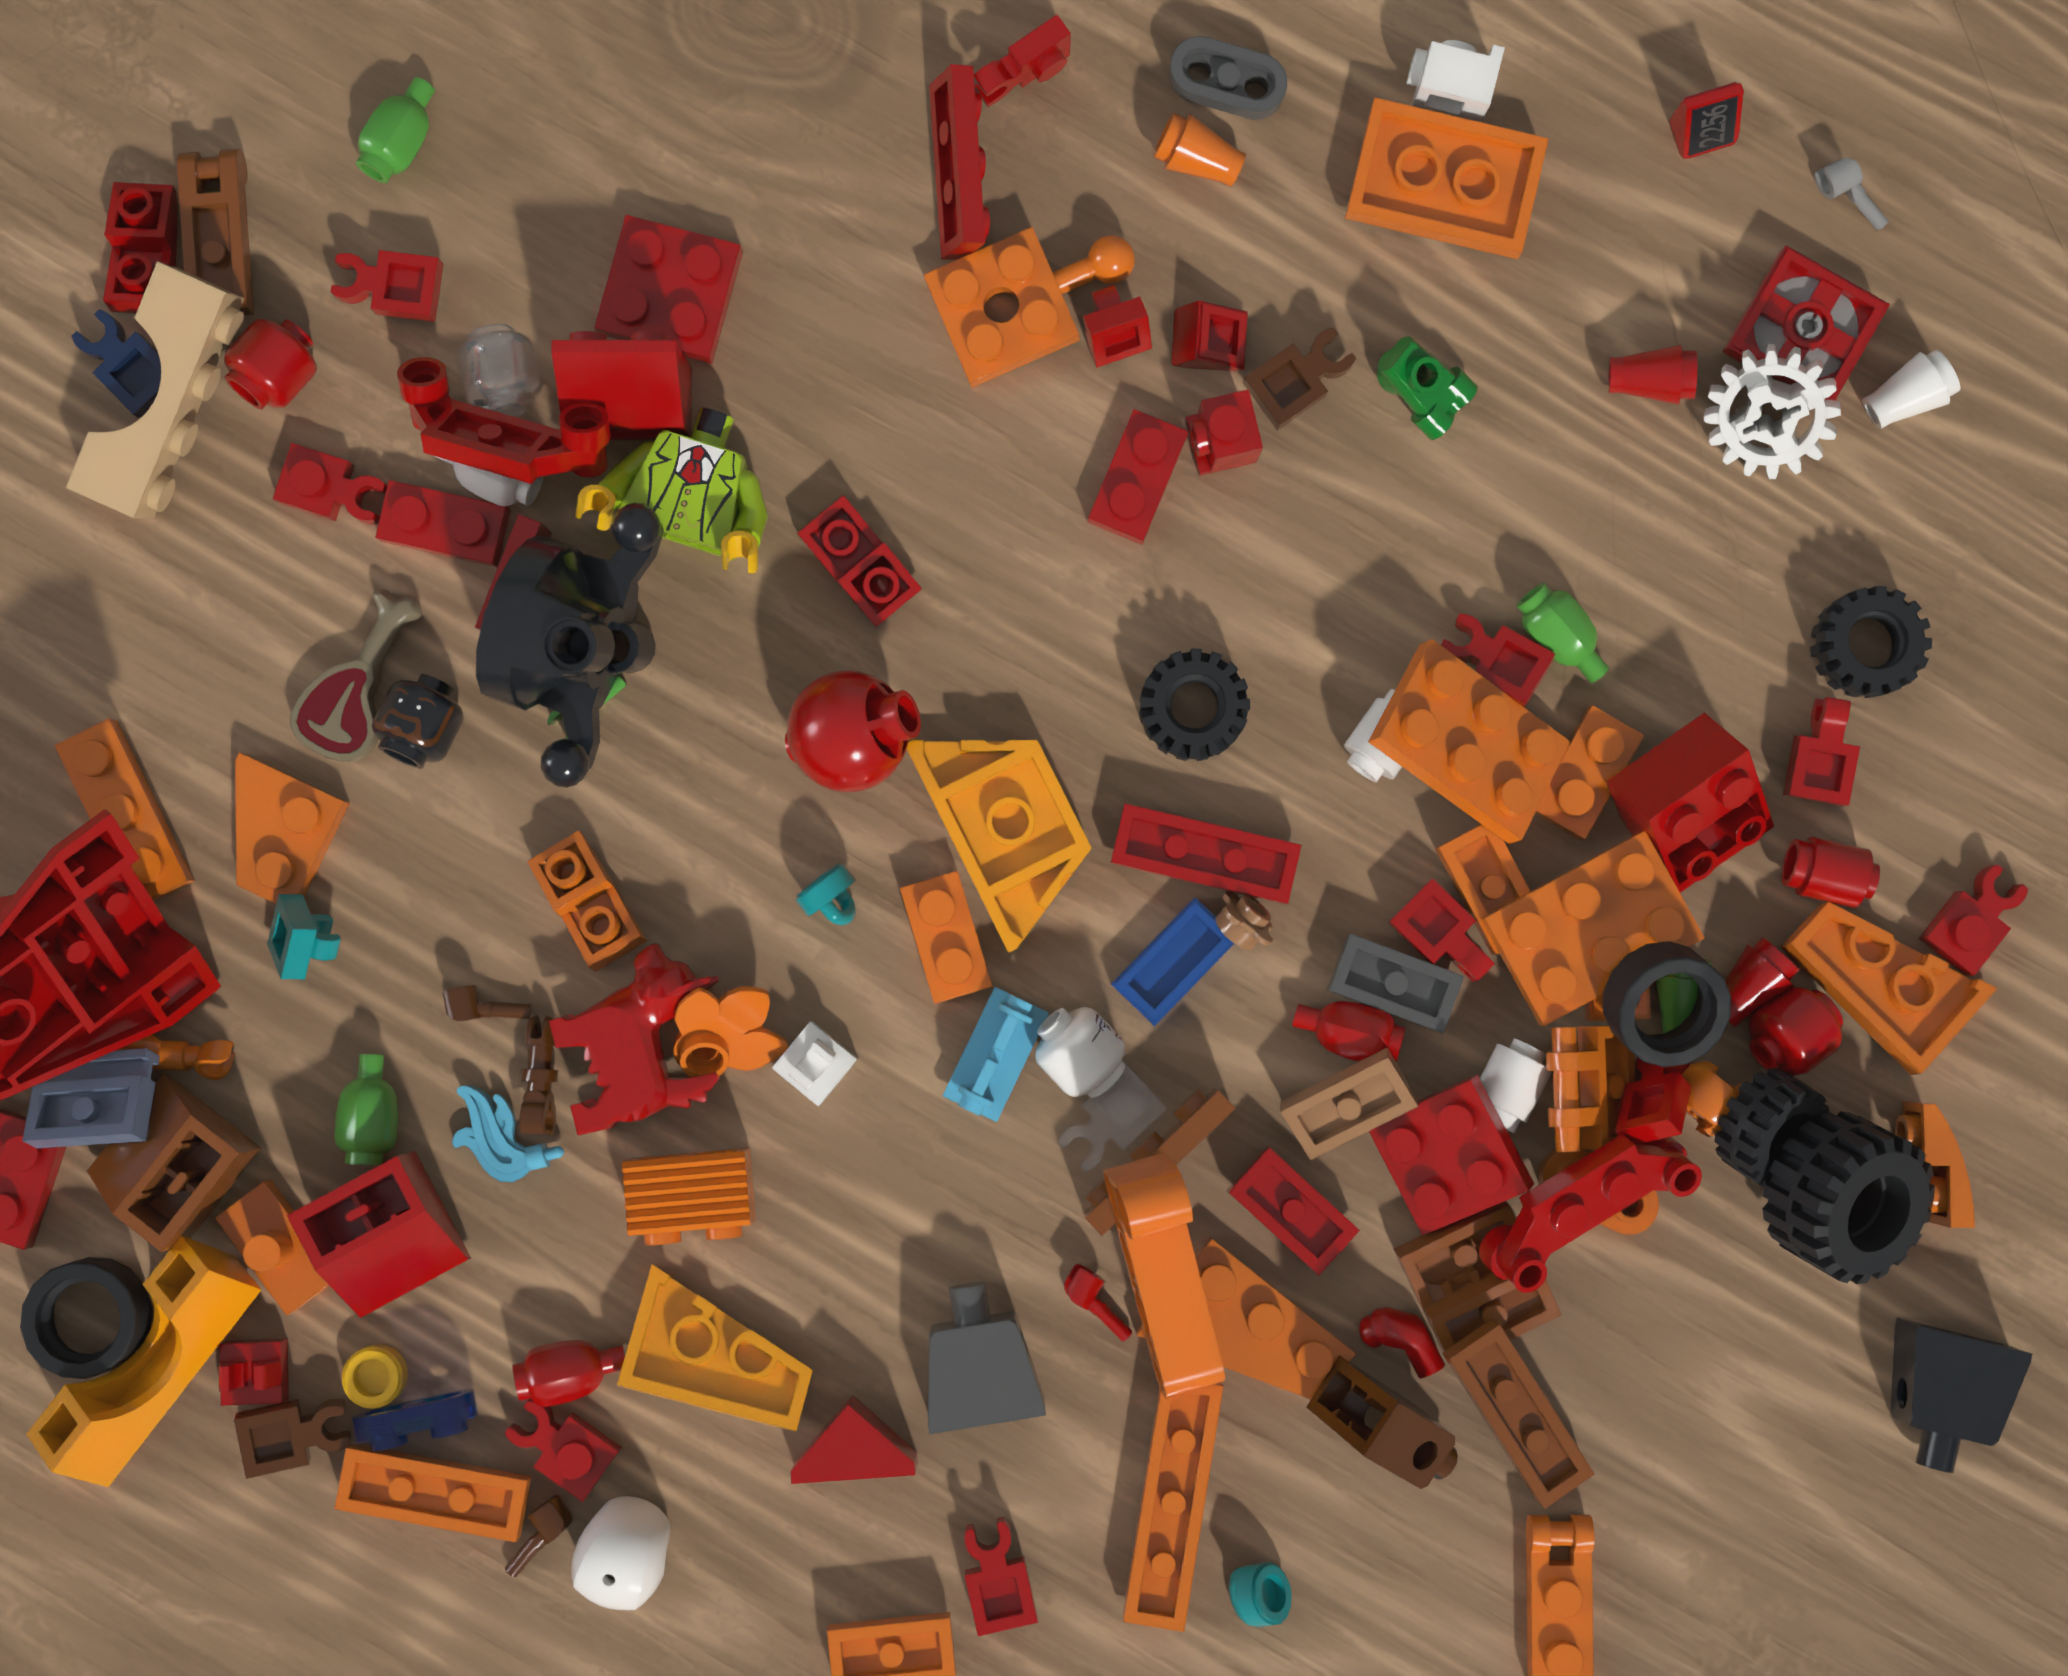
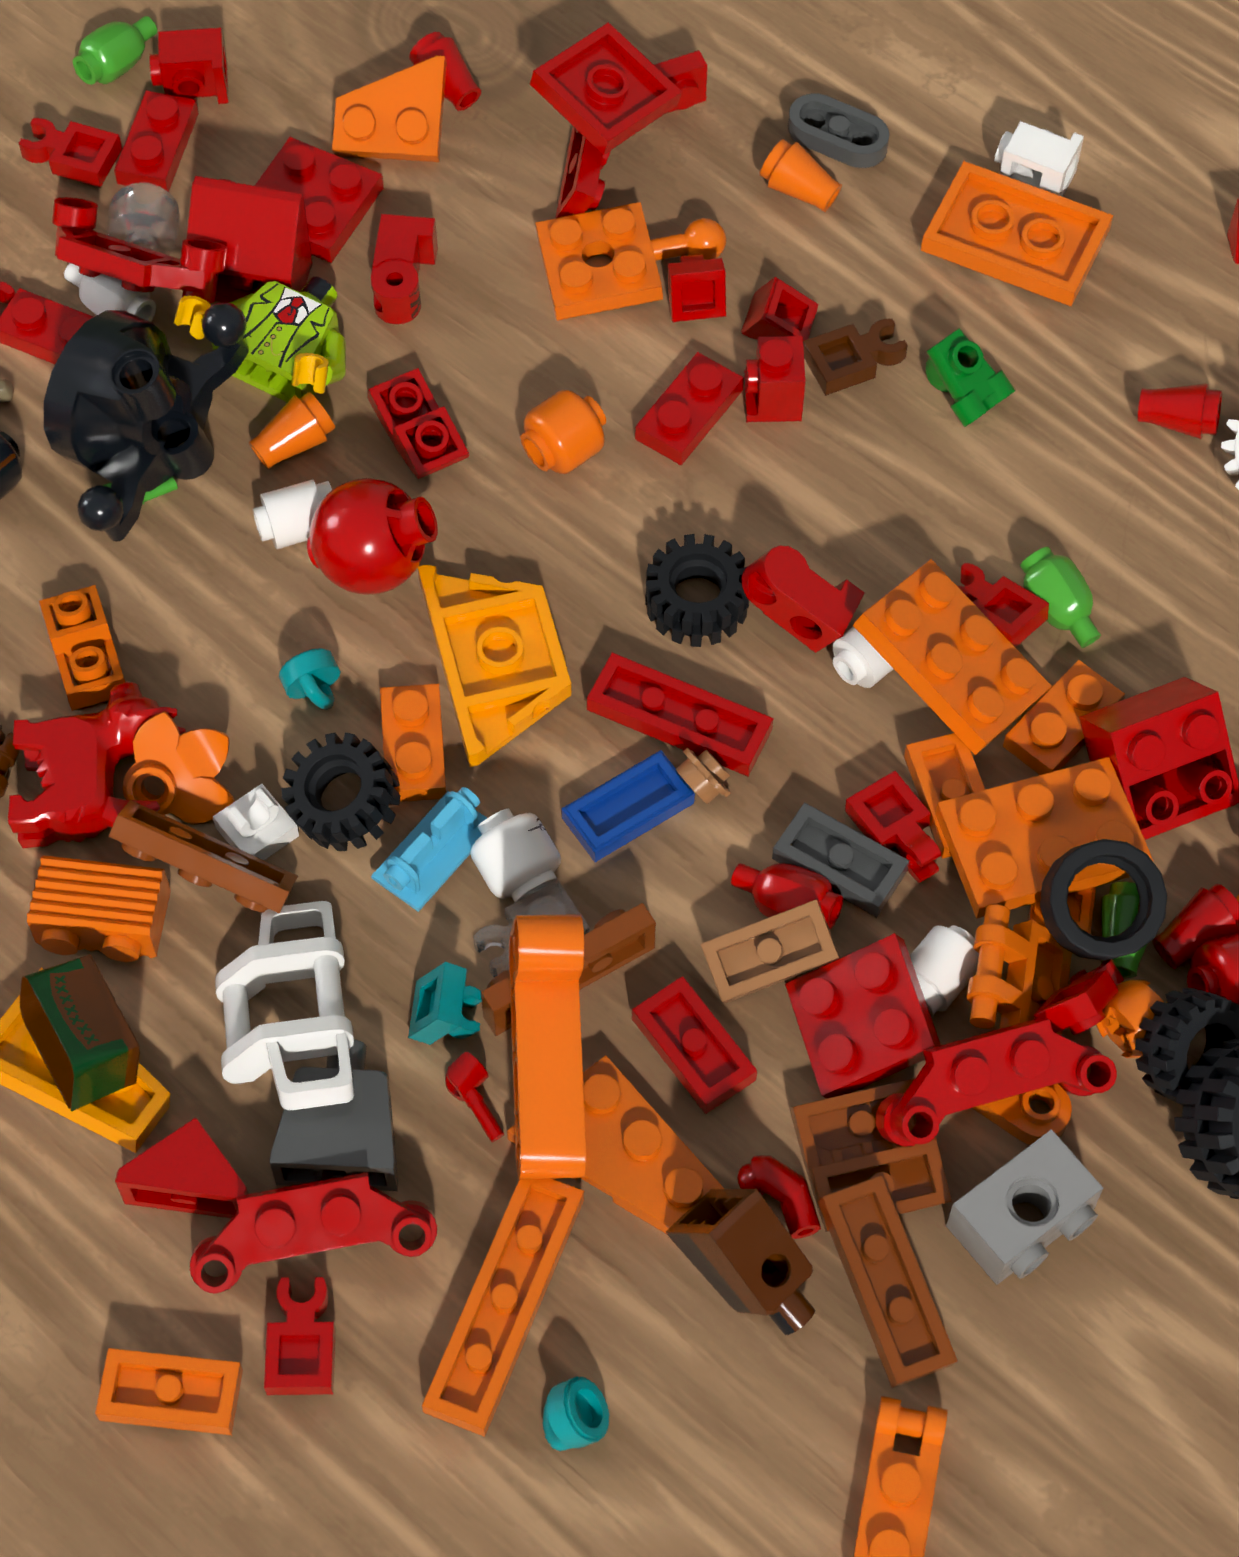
camera: 15 degrees right, 25 degrees down
(478, 246) = (157, 140): none -> red plate
(489, 140) = (191, 64): none -> red brick
(714, 1344) = (79, 1031): none -> piece
(730, 601) = (293, 430): none -> orange cone
(735, 164) = (394, 115): none -> orange wing
(760, 704) = (289, 512): none -> white brick
(774, 85) = (459, 83): none -> red cone
(779, 1128) = (202, 858): none -> dark orange plate
(786, 365) = (399, 251): none -> red leg
(867, 1045) = (319, 770): none -> black tyre
(956, 1295) = (269, 1045): none -> white bar
(968, 103) = (605, 88): none -> red plate
(982, 1481) = (309, 1221): none -> red plate
(1016, 545) = (563, 432): none -> orange head
(1044, 1224) = (439, 1005): none -> teal tile
(1291, 702) = (800, 597): none -> red leg
(1598, 1323) = (1039, 1175): none -> light grey brick

